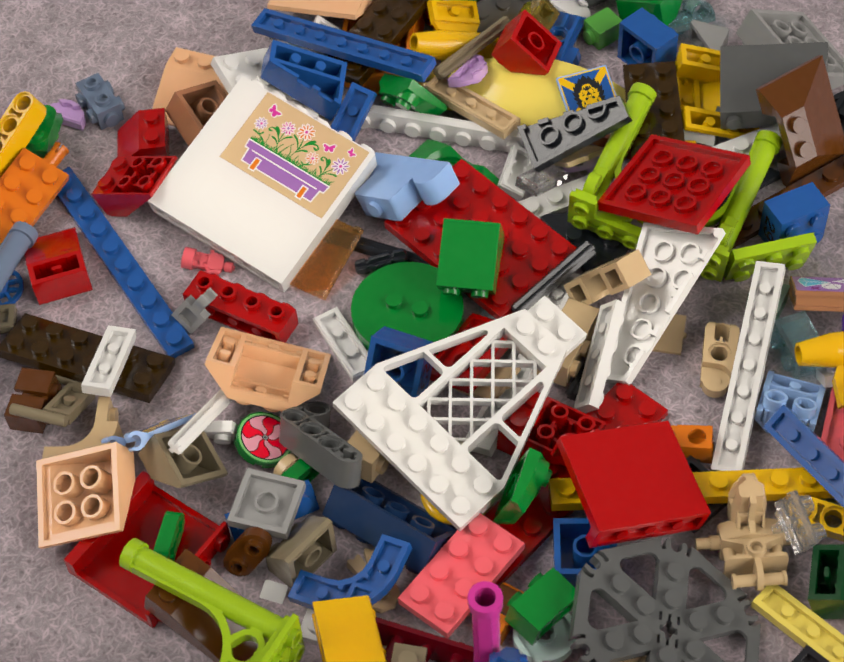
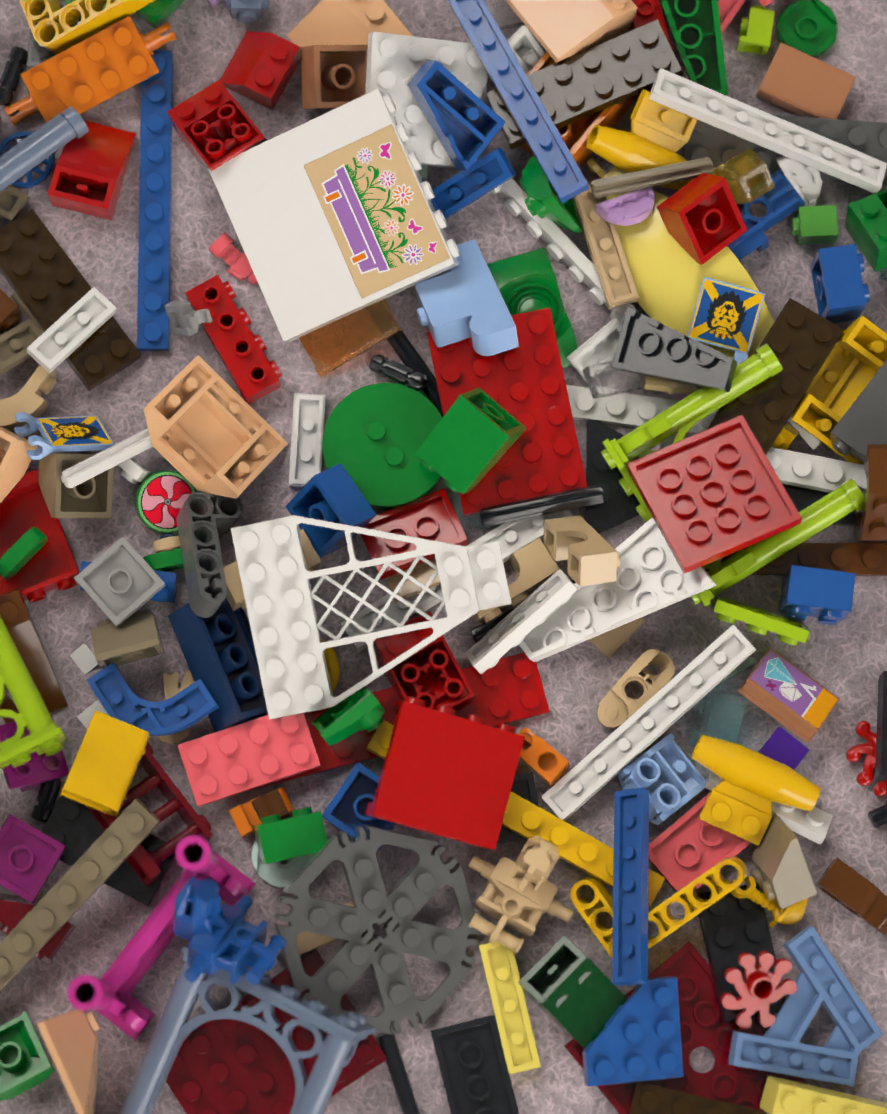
camera: 25 degrees right, 25 degrees up
(243, 556) = (79, 613): reddish brown plate -> none
(794, 522) = (559, 905): clear hips -> none

